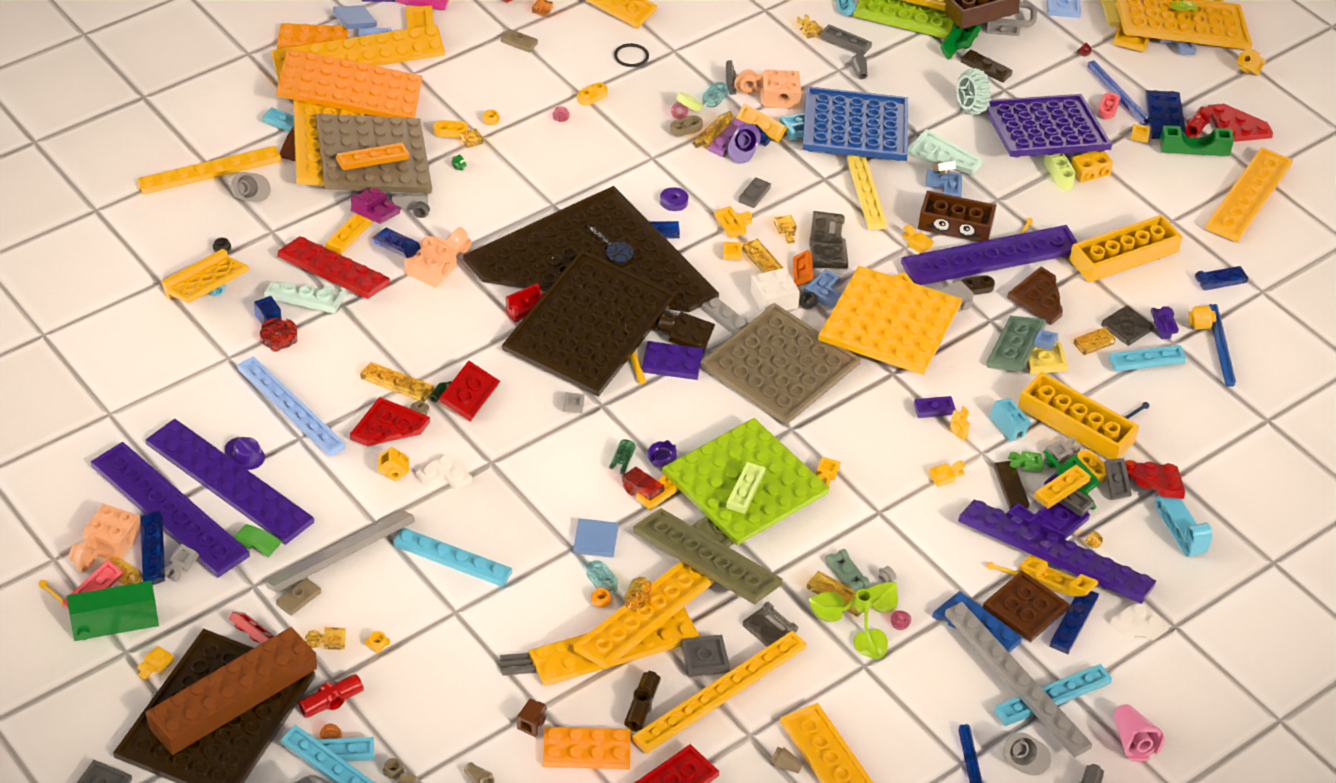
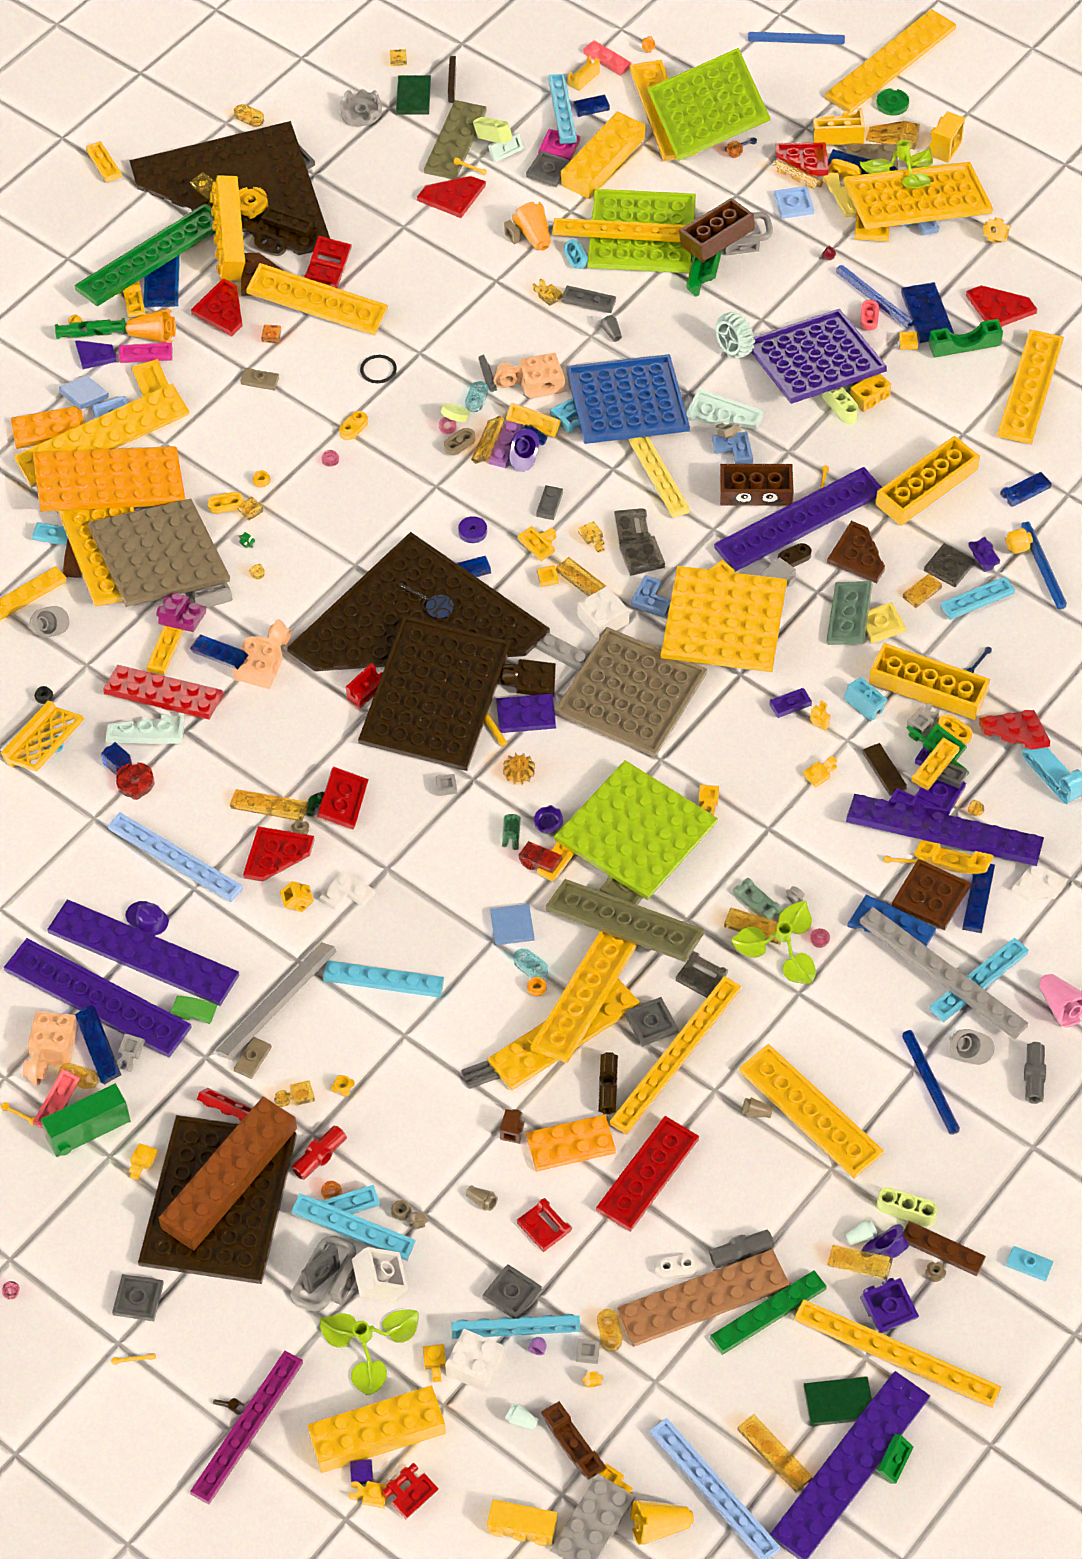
camera: 10 degrees left, 10 degrees up
(372, 156) = (162, 559): light orange plate -> none
(418, 212) = (227, 604): dark grey plate -> none
(459, 189) = (257, 571): none -> clear yellow hinge
(638, 593) = (572, 972): clear yellow plate -> none
(648, 404) = (519, 768): none -> clear yellow gear
(745, 487) = (641, 840): yellowish green plate -> none
(803, 268) = (622, 579): orange plate -> none
(808, 295) = (632, 614): pearl dark grey plate -> none
(917, 241) = (725, 520): yellow plate -> none
(990, 67) = (736, 296): dark brown plate -> none
(1028, 460) = (894, 739): bright green plate -> none
(1045, 339) = (877, 604): medium blue plate -> none
(1117, 478) = (982, 739): dark grey plate -> none
(1198, 121) = (962, 315): red piece -> none

